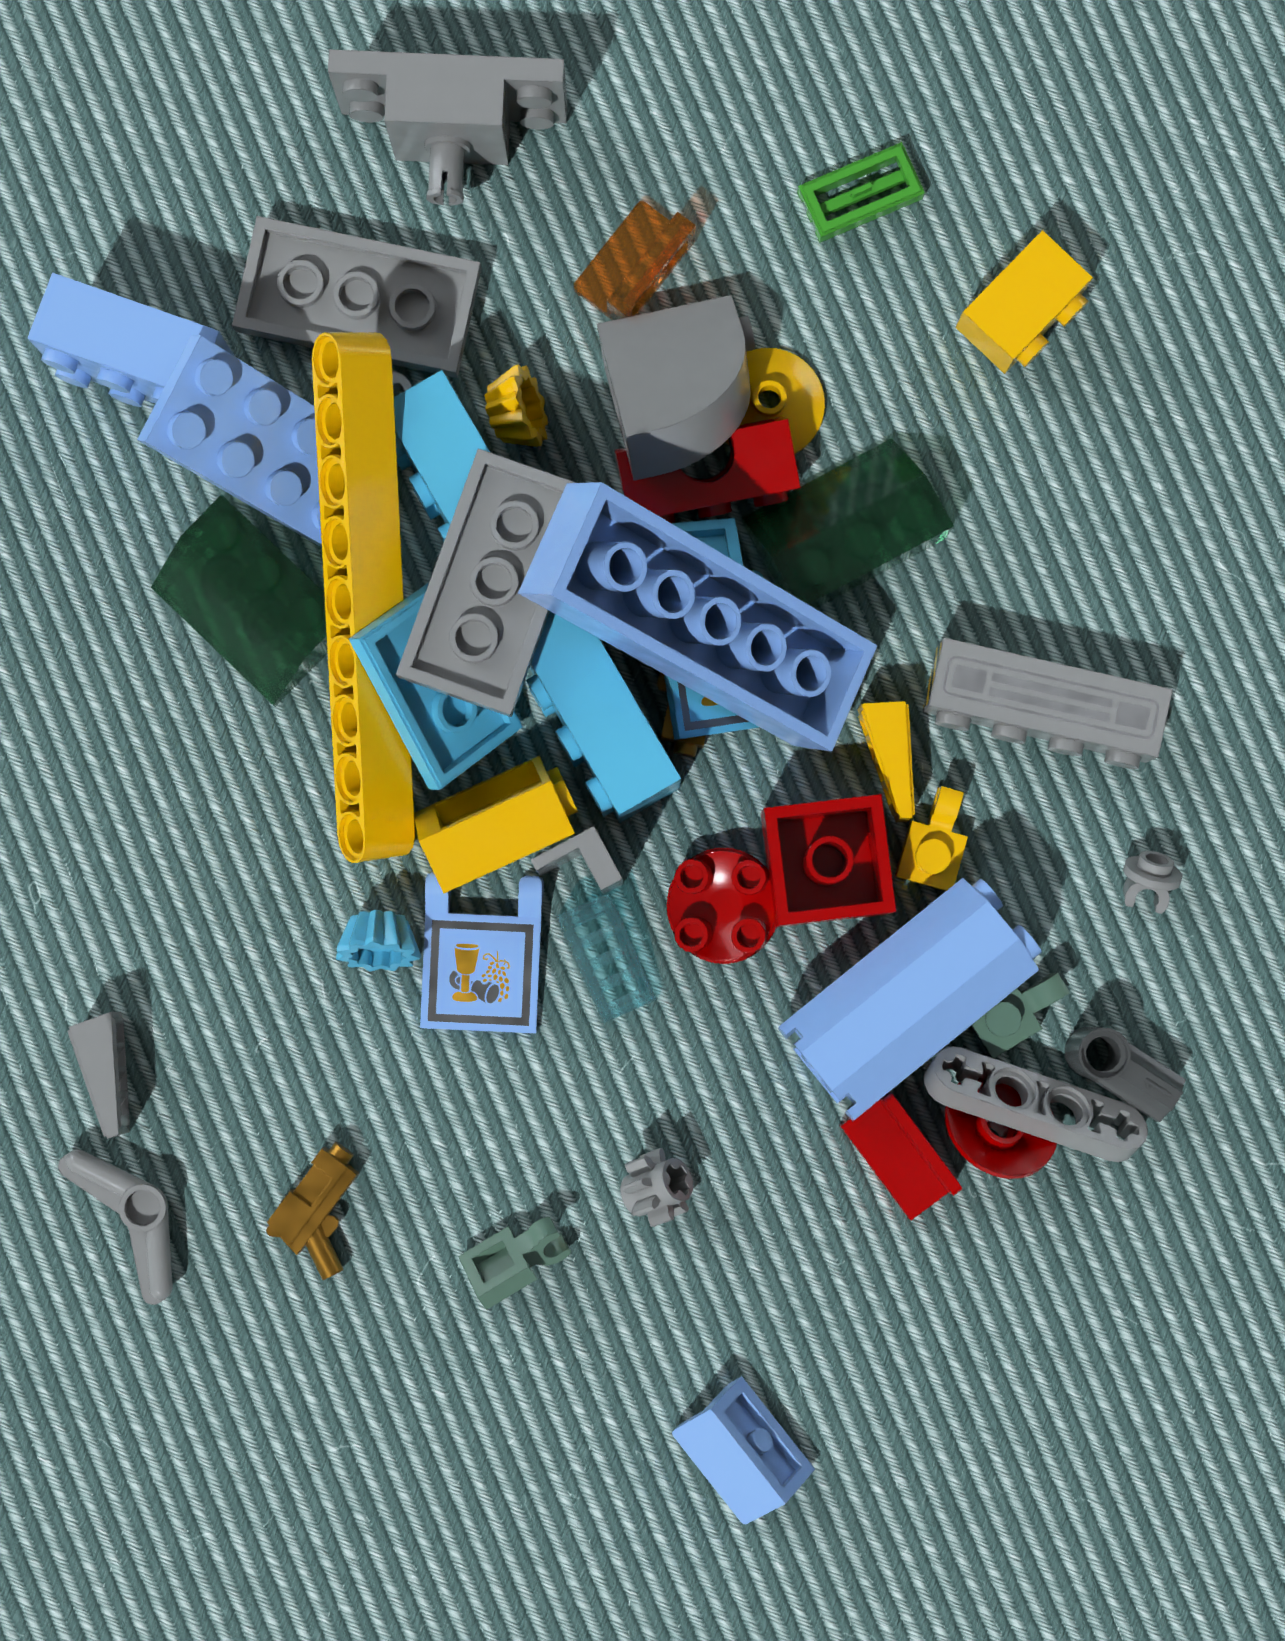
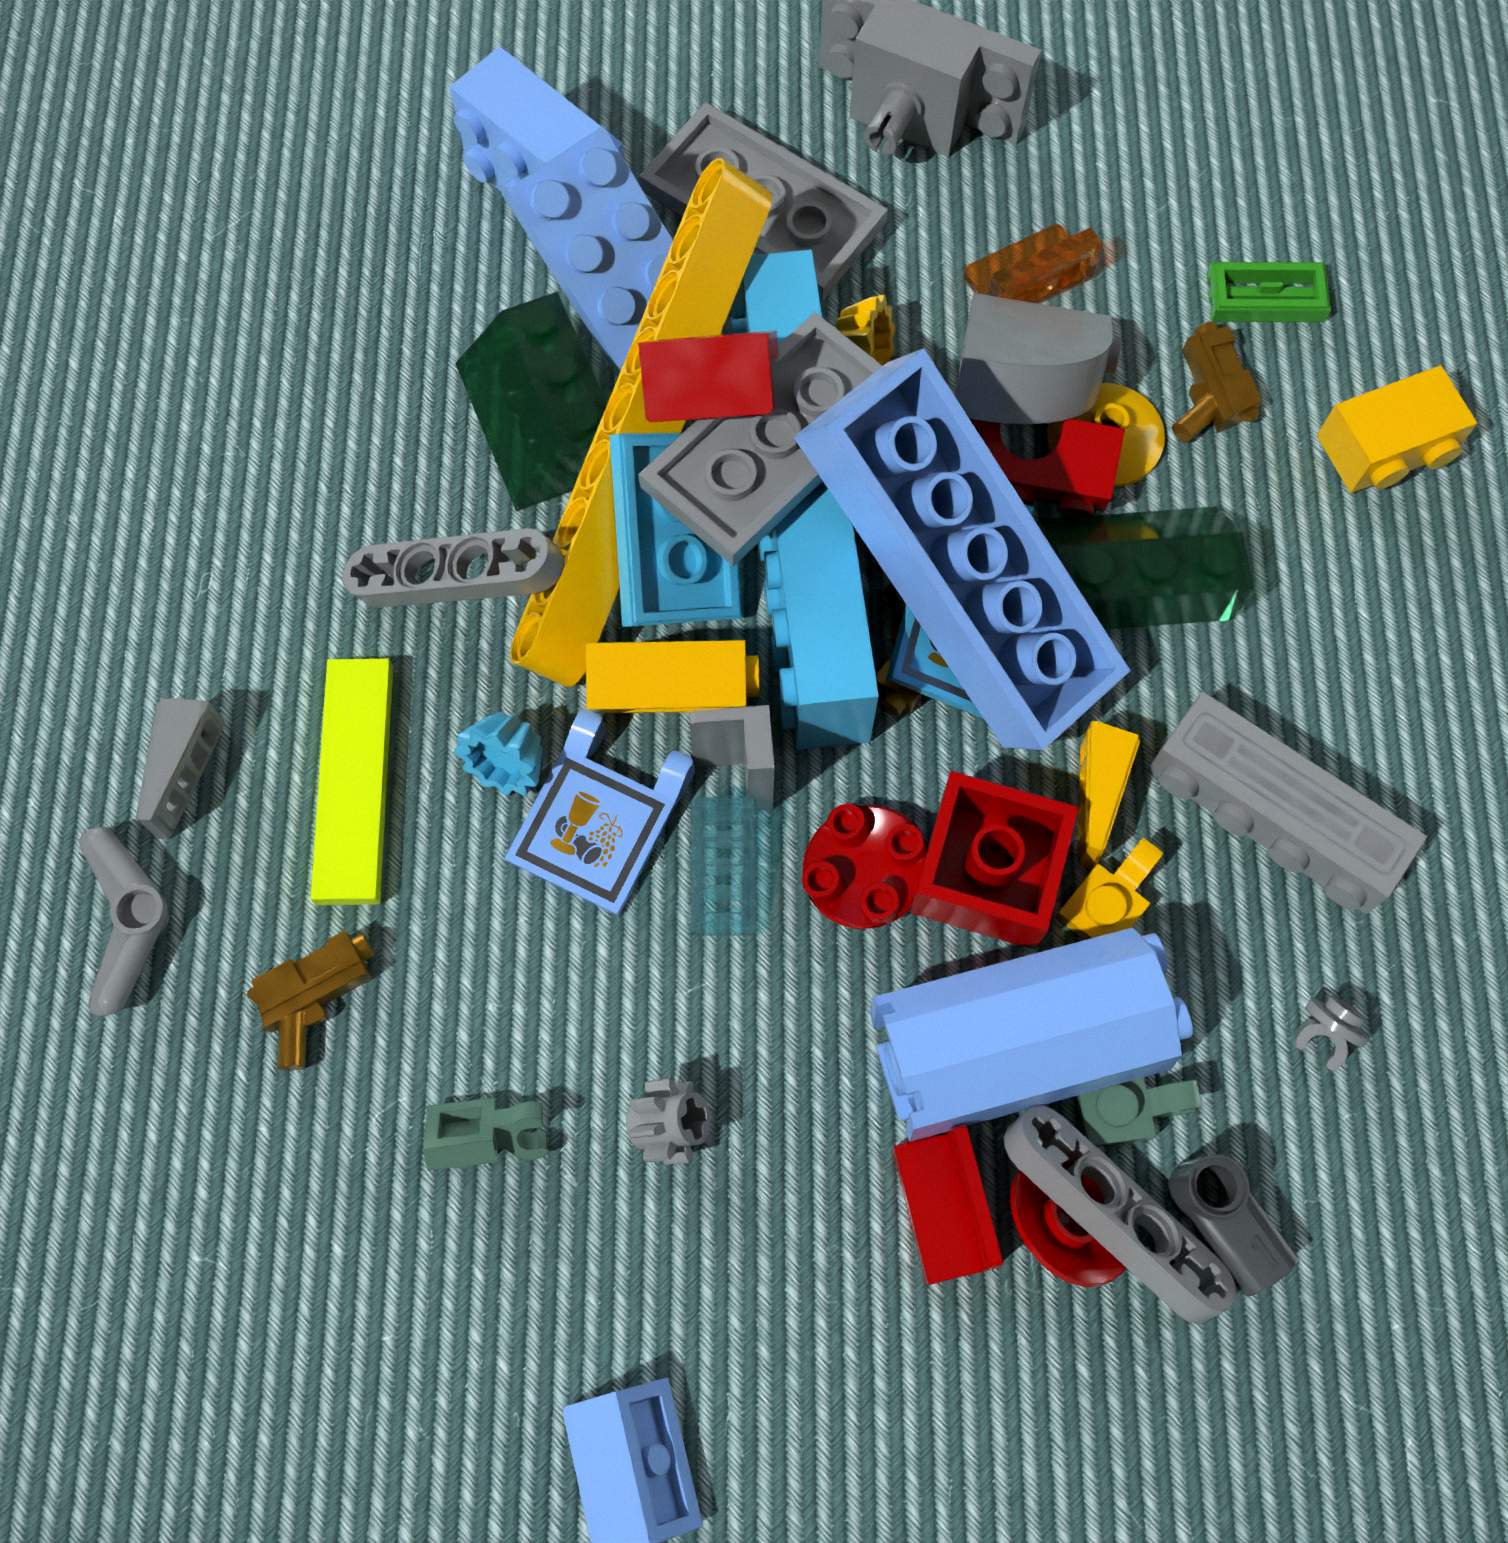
camera: 25 degrees right, 15 degrees down
(258, 807) = (452, 560): none -> light grey beam
(259, 1016) = (352, 782): none -> neon yellow tile
(415, 556) = (708, 376): none -> red panel
(857, 316) = (1221, 388): none -> pearl gold piece

